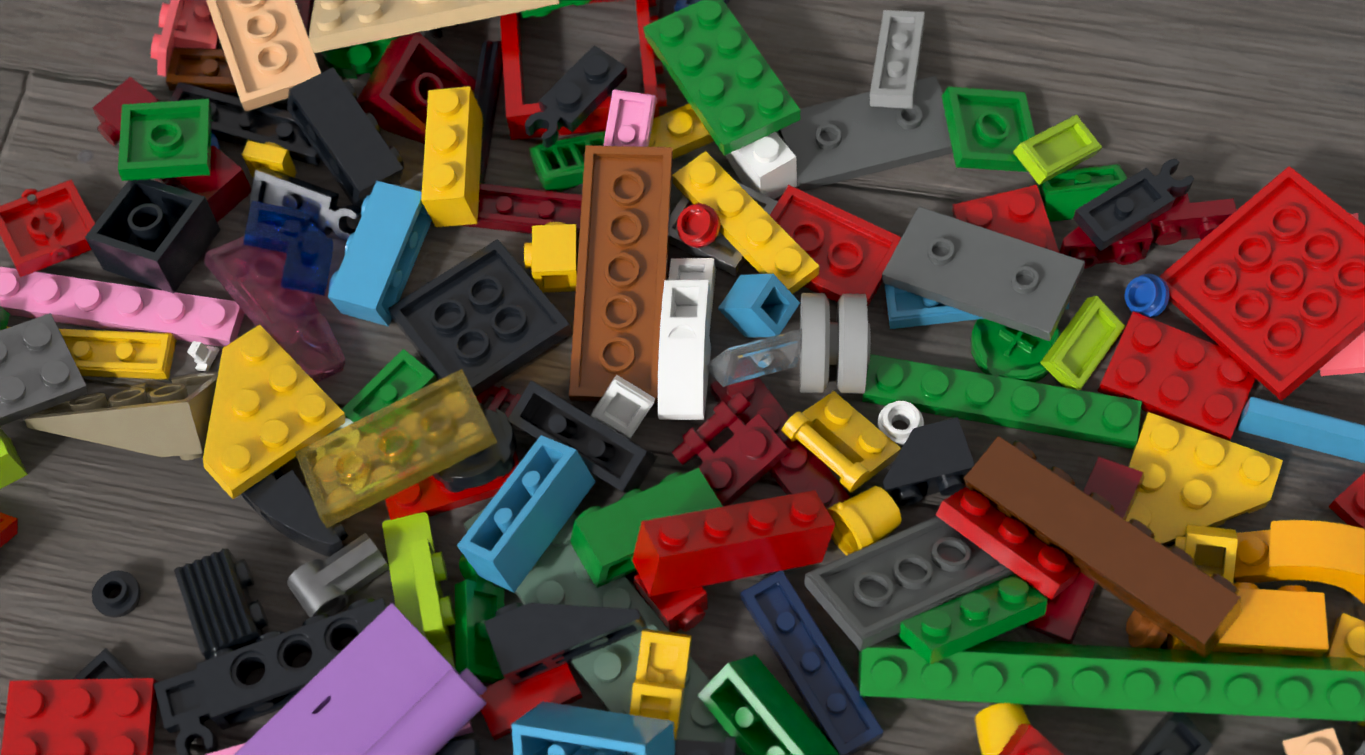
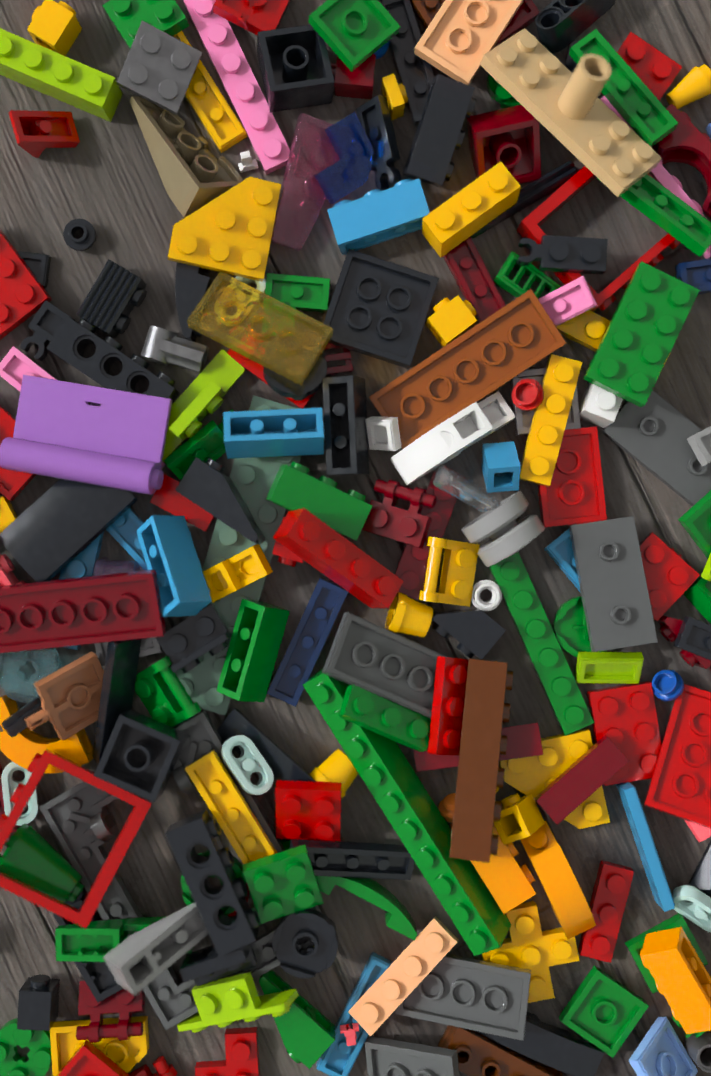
camera: 50 degrees right, 25 degrees up
(1204, 453) = (581, 779): none -> dark red tile

